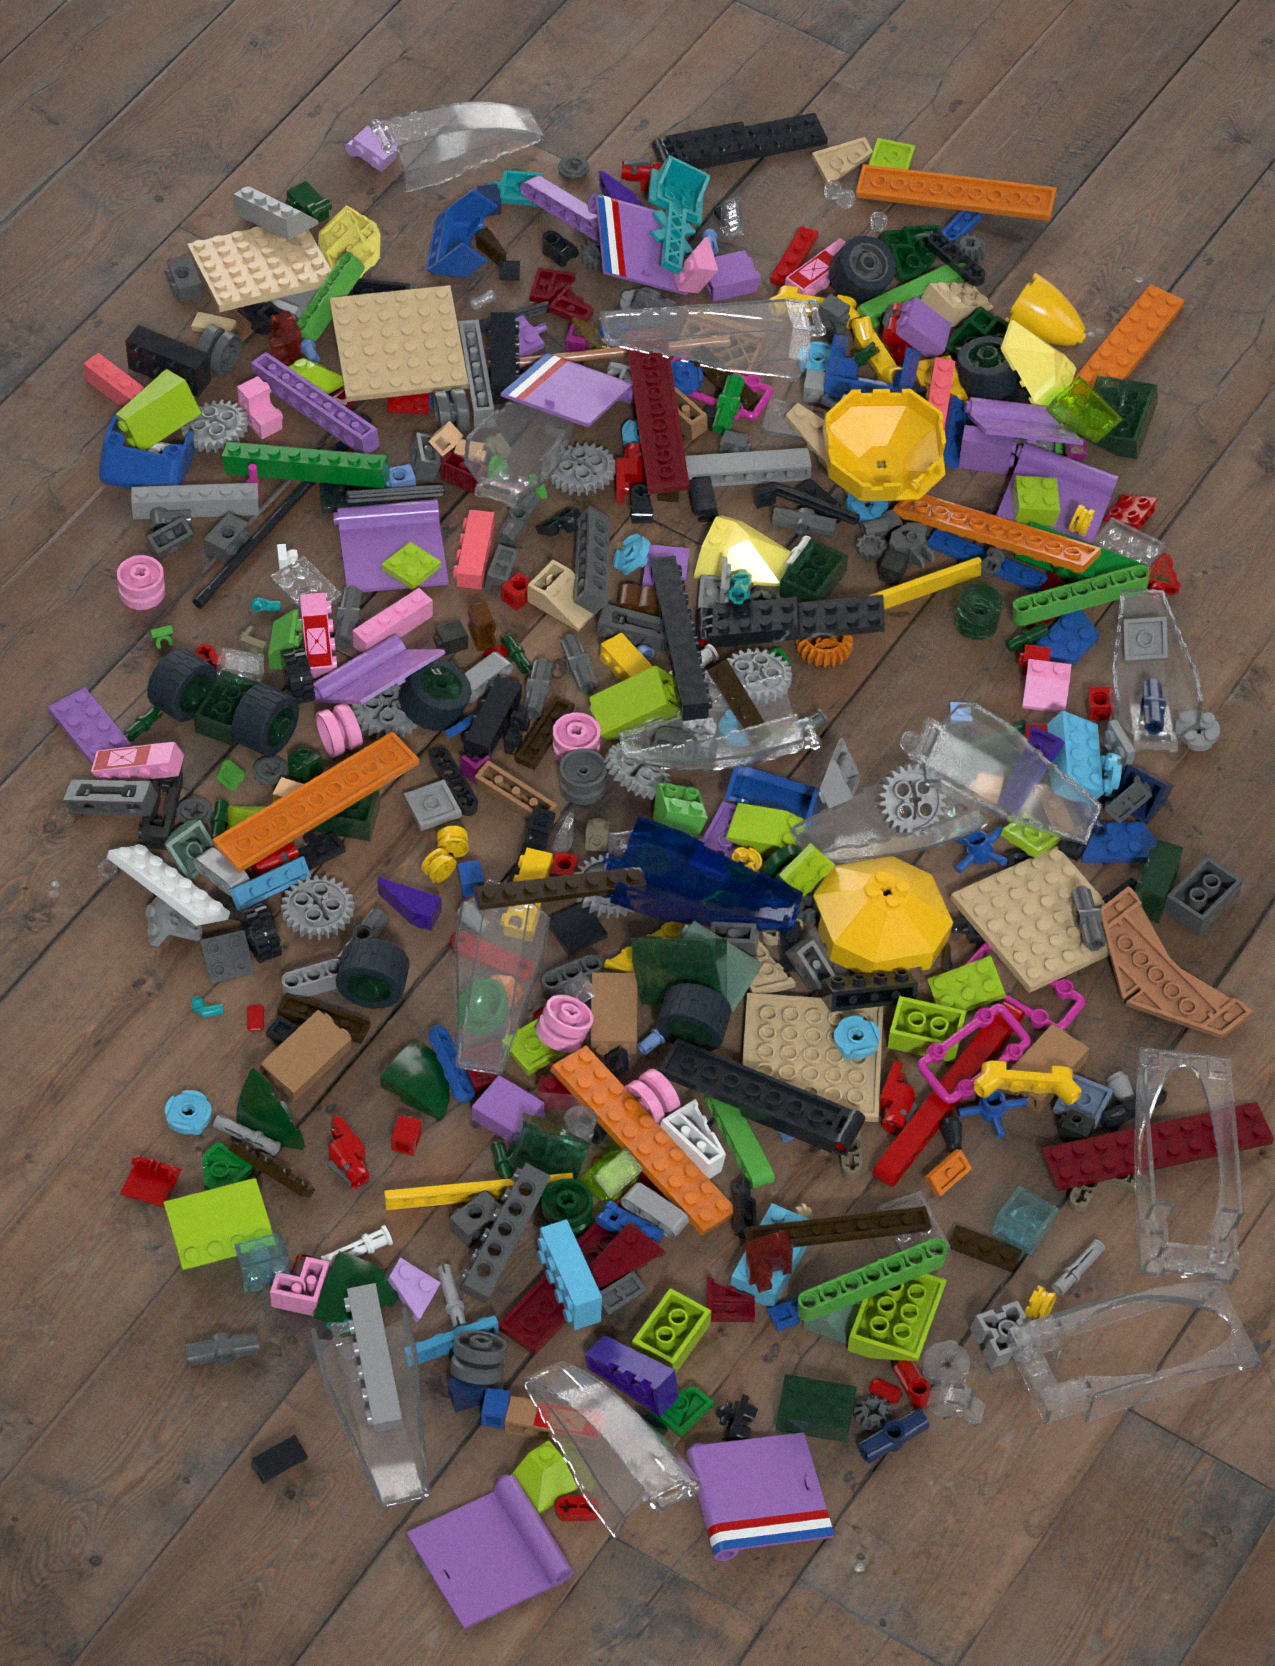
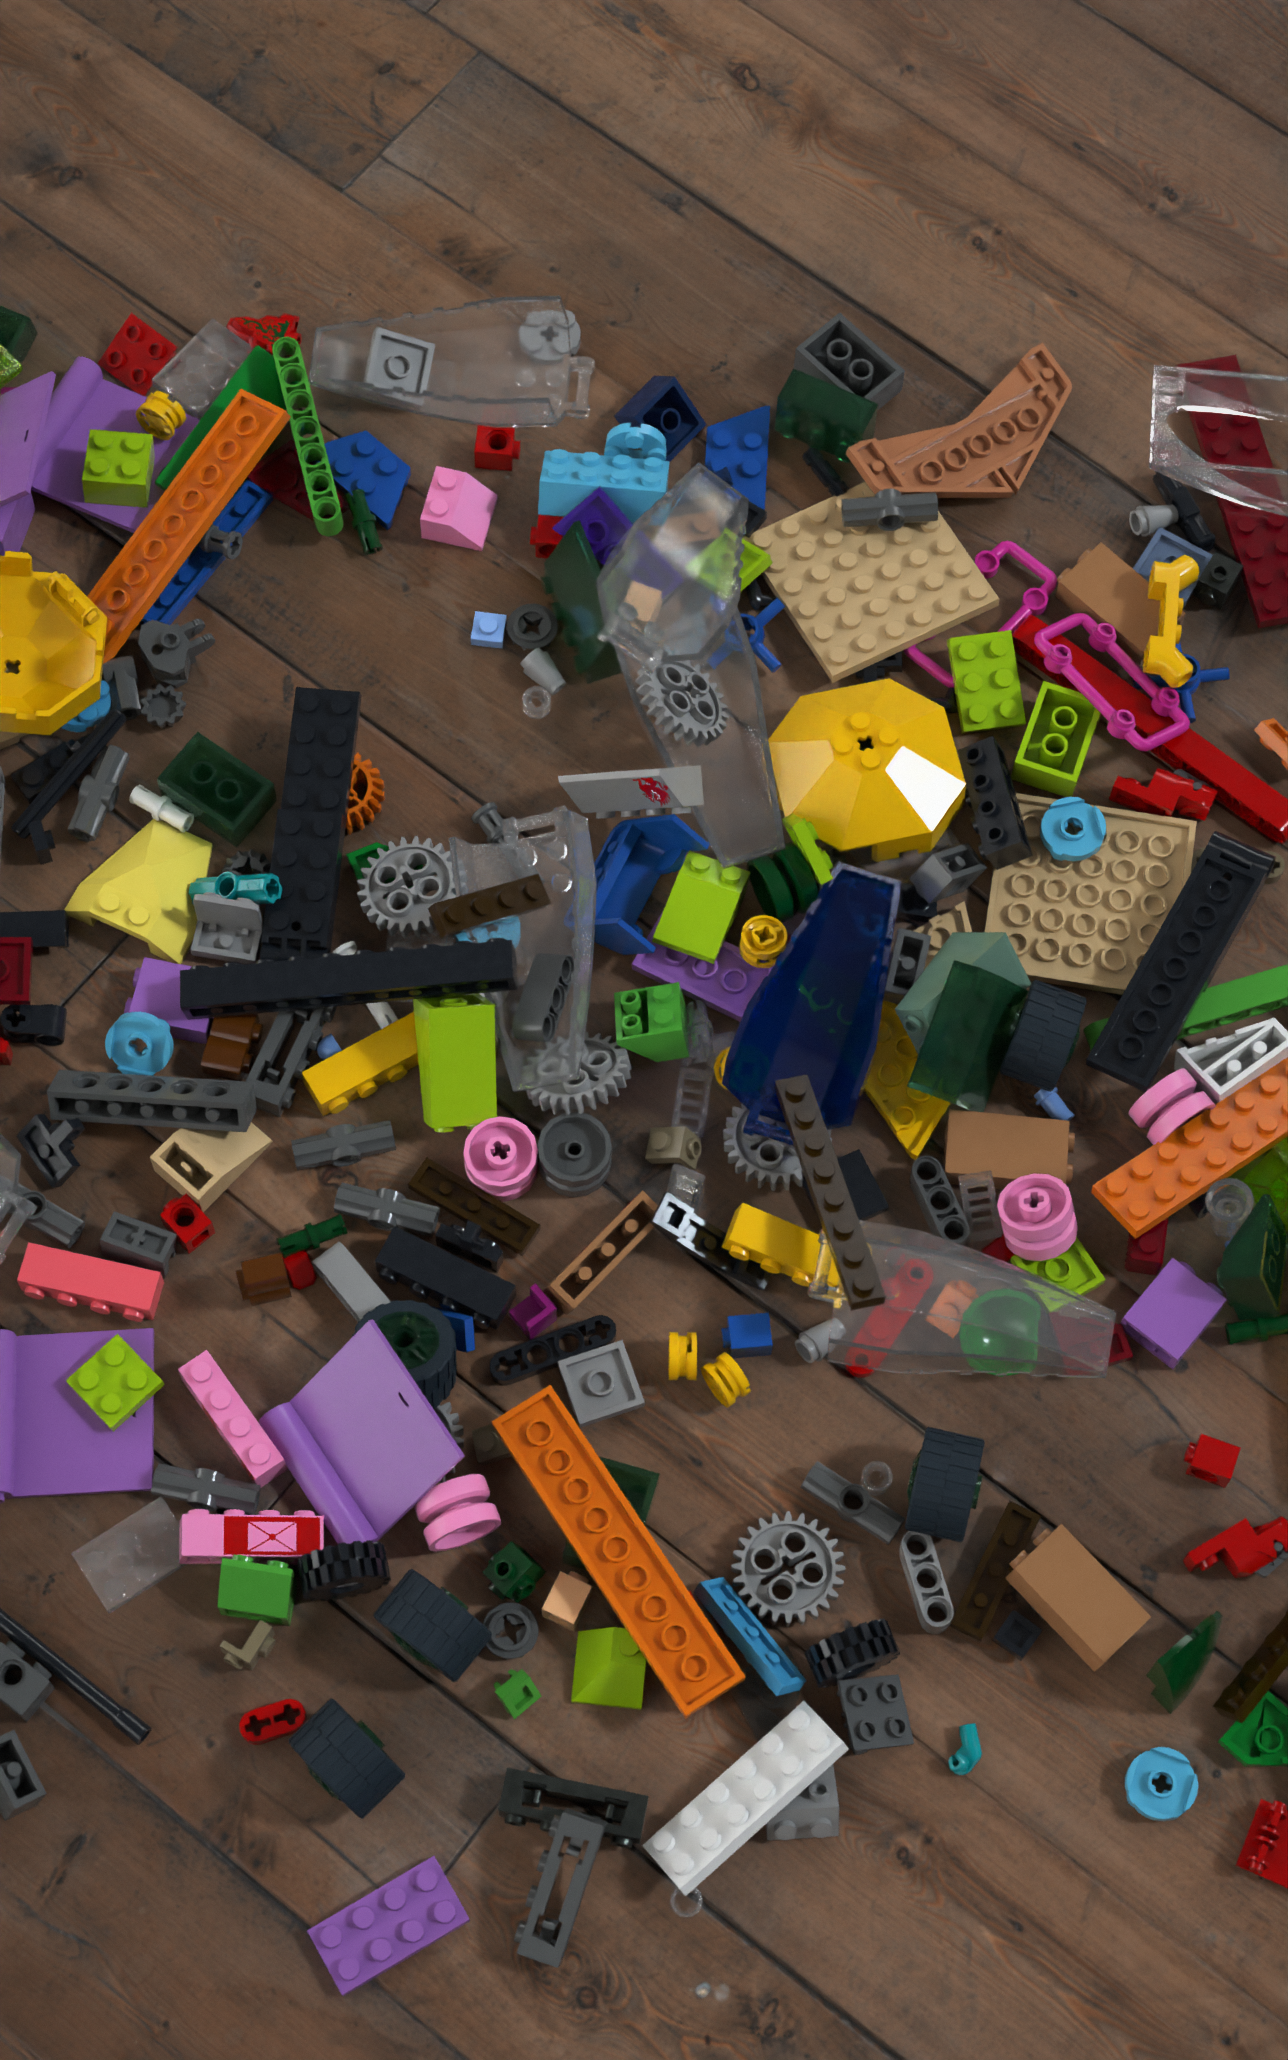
camera: 85 degrees left, 15 degrees up
(138, 762) = (499, 1840): bright pink brick -> none
(141, 582) = (78, 1815): bright pink wheel -> none
(143, 723) = (396, 1835): dark green pin -> none
(160, 634) = (209, 1797): bright green tile -> none
(188, 843) = (661, 1761): sand green slope -> none
(189, 806) = (597, 1749): dark grey gear -> none
(217, 710) = (386, 1689): clear green brick -> none
(218, 870) = (721, 1715): light grey beam -> none
(219, 820) = (607, 1716): dark green pin -> none
(241, 663) = (301, 1667): clear brick -> none
(243, 1133) = (1211, 1684): light grey pin -> none
(255, 1017) = (980, 1677): red piece -> none
(260, 604) = (162, 1630): teal arm -> none
(285, 558) = (70, 1586): white tile -> none
(320, 849) = (680, 1554): black hinge -> none
(414, 905) = (793, 1425): dark purple slope -> none
(418, 1080) = (1106, 1436): dark green brick -> none
(446, 1054) = (1075, 1391): blue plate -> none
(451, 637) = (271, 1331): pearl dark grey brick -> none
(564, 864) = (753, 1190): red brick -> none
(617, 1062) = (1093, 1155): black plate -> none
(893, 567) = (208, 681): pearl dark grey brick -> none
(931, 582) = (252, 657): yellow tile -> none
(952, 1132) = (1223, 733): black cone -> none
(978, 611) = (318, 574): clear green wheel -> none
(1035, 653) = (405, 517): red brick -> none
(1118, 743) = (588, 428): light grey plate -> none
(1128, 800) = (687, 430): dark grey hinge -> none
(1153, 706) = (520, 376): dark blue piece -> none

